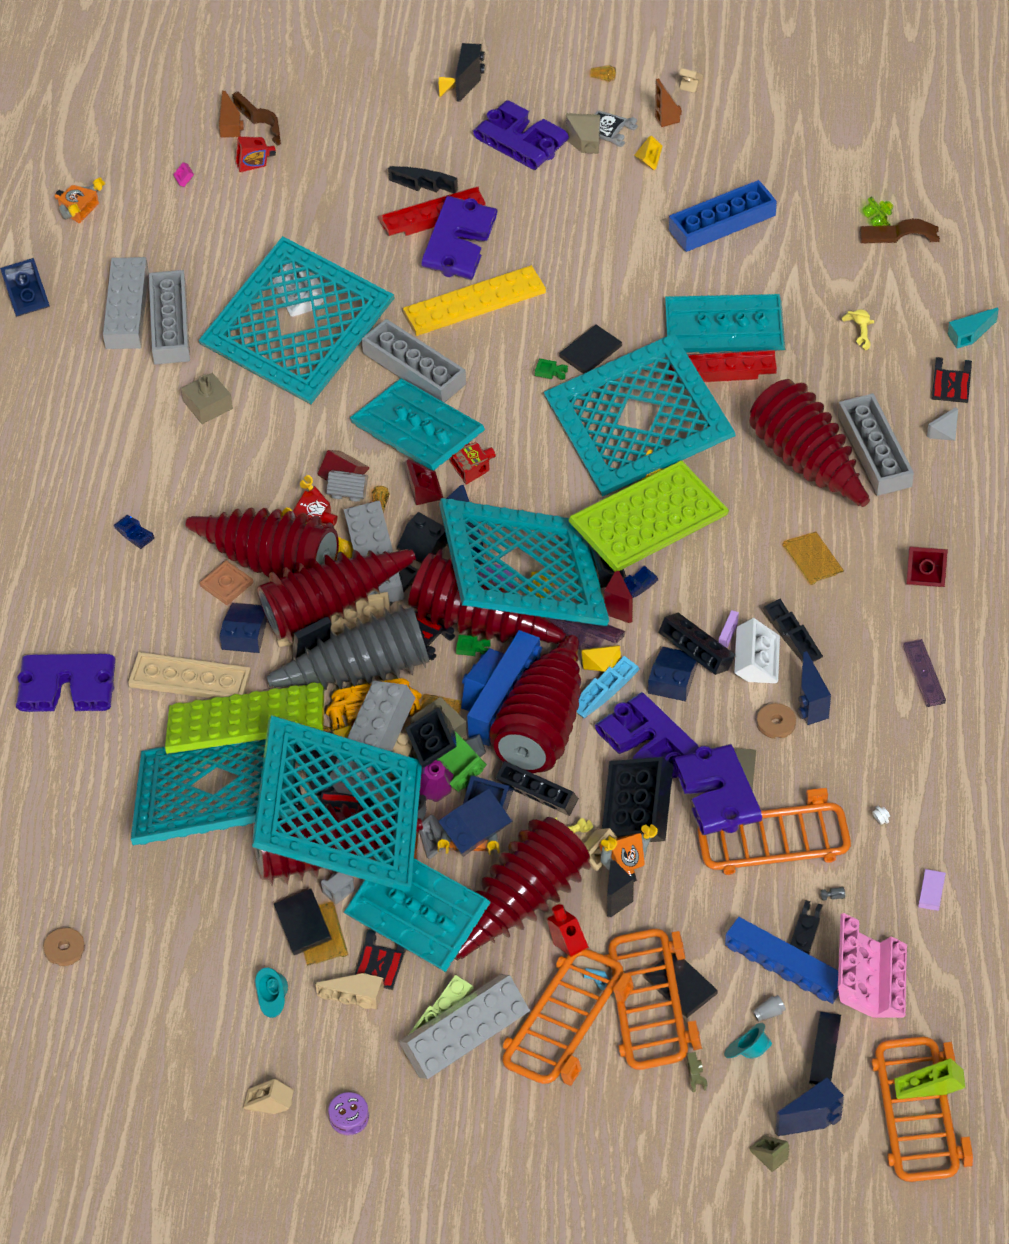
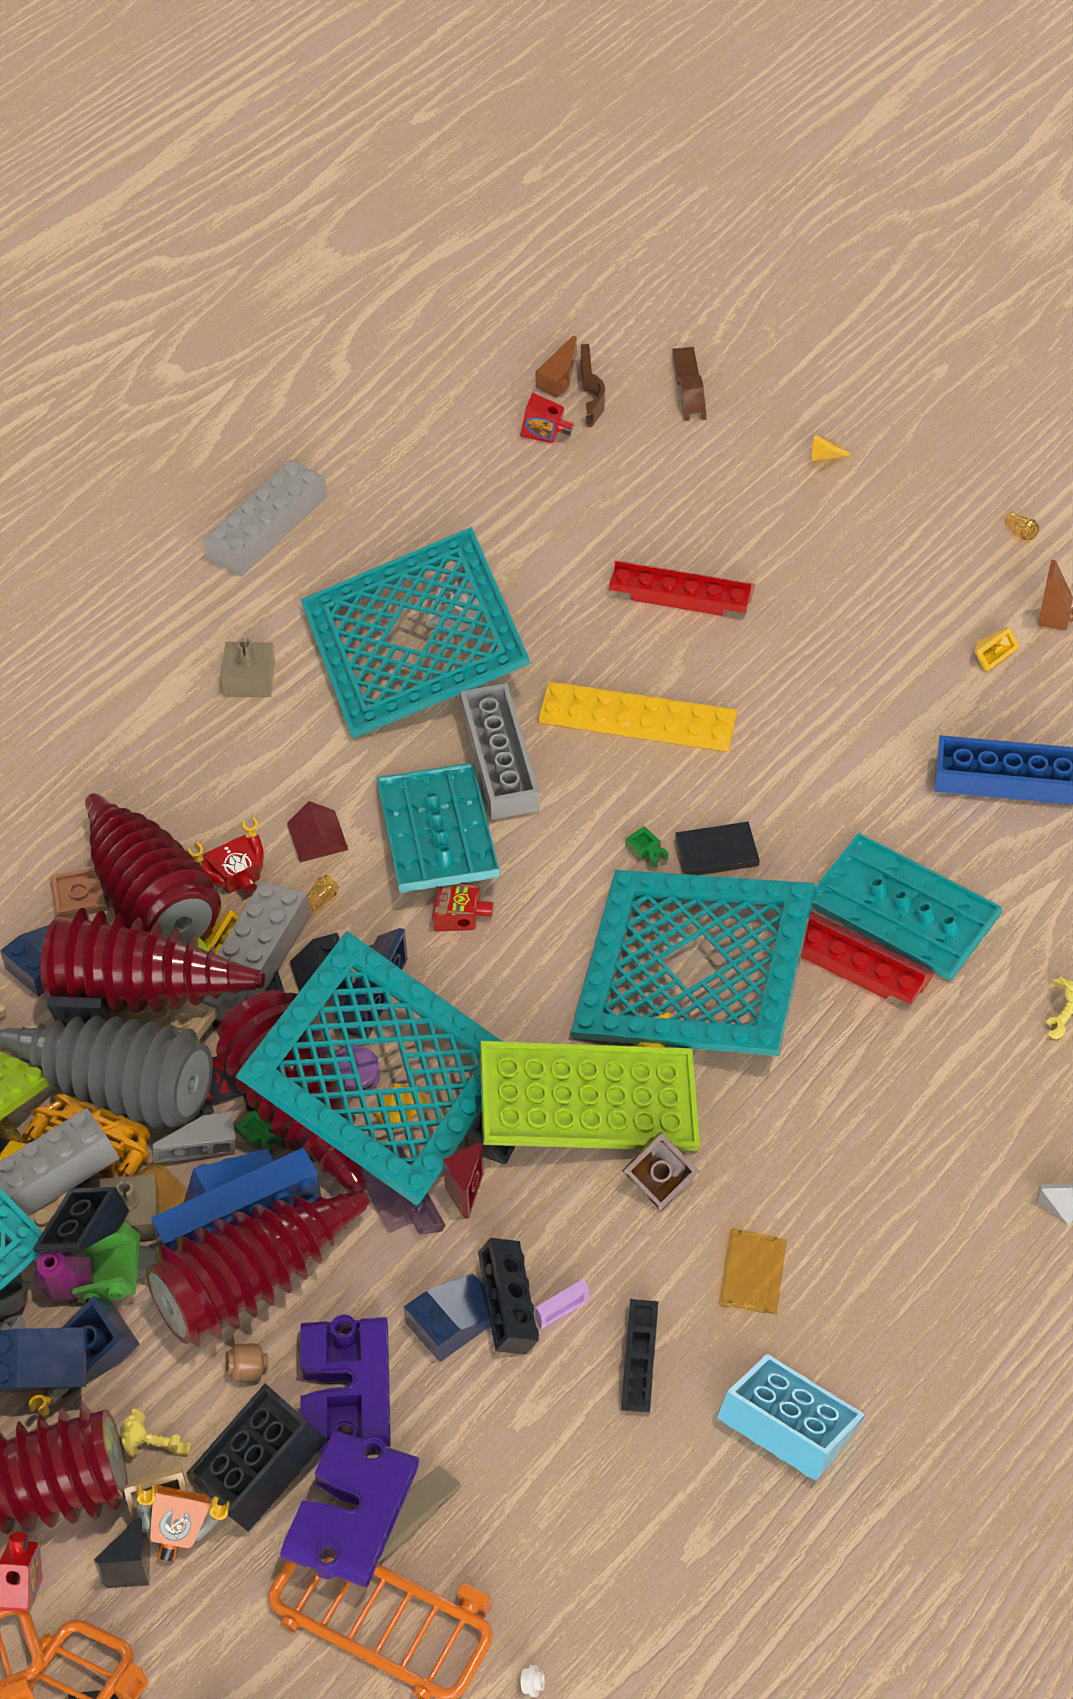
camera: 35 degrees right, 0 degrees up
(24, 287) = (184, 446): dark blue slope -> none
(79, 201) = (322, 382): torso -> none
(133, 532) = (41, 778): clear blue slope -> none
(169, 317) = (291, 556): light grey brick -> none
(183, 174) = (455, 408): dark pink plate -> none
(327, 85) = (690, 381): none -> reddish brown piece
(347, 485) = (297, 854): light grey brick -> none
(422, 178) = (701, 541): black slope -> none
(423, 483) = (380, 901): dark red slope -> none
(445, 664) = (202, 1138): none -> light grey slope
(453, 222) = (684, 611): dark purple connector -> none
(469, 69) = (860, 444): black slope -> none
(505, 133) = (854, 550): dark purple connector -> none
(537, 788) = (161, 1362): black brick -> none
(582, 762) = (246, 1362): none -> medium nougat head
(584, 132) = (933, 583): dark tan slope -> none
(600, 984) = (19, 1656): medium azure arm -> none
(601, 658) = (385, 1243): yellow slope -> none
(606, 686) = (357, 1283): medium azure slope -> none
(612, 124) = (972, 590): flag -> none
(640, 581) = (510, 1174): clear blue slope -> none
(721, 532) = (660, 1170): none -> slope
(757, 652) = (571, 1356): white slope -> none
(780, 712) = (520, 1445): medium nougat tile -> none
(806, 439) = (858, 1112): dark red cone -> none
(814, 694) = (581, 1451): dark blue slope -> none
(875, 444) = (950, 1171): light grey brick -> none
(898, 614) = (790, 1416): none -> medium azure slope
(924, 673) = (758, 1519): clear purple tile -> none
(926, 566) = (879, 1376): dark red slope -> none

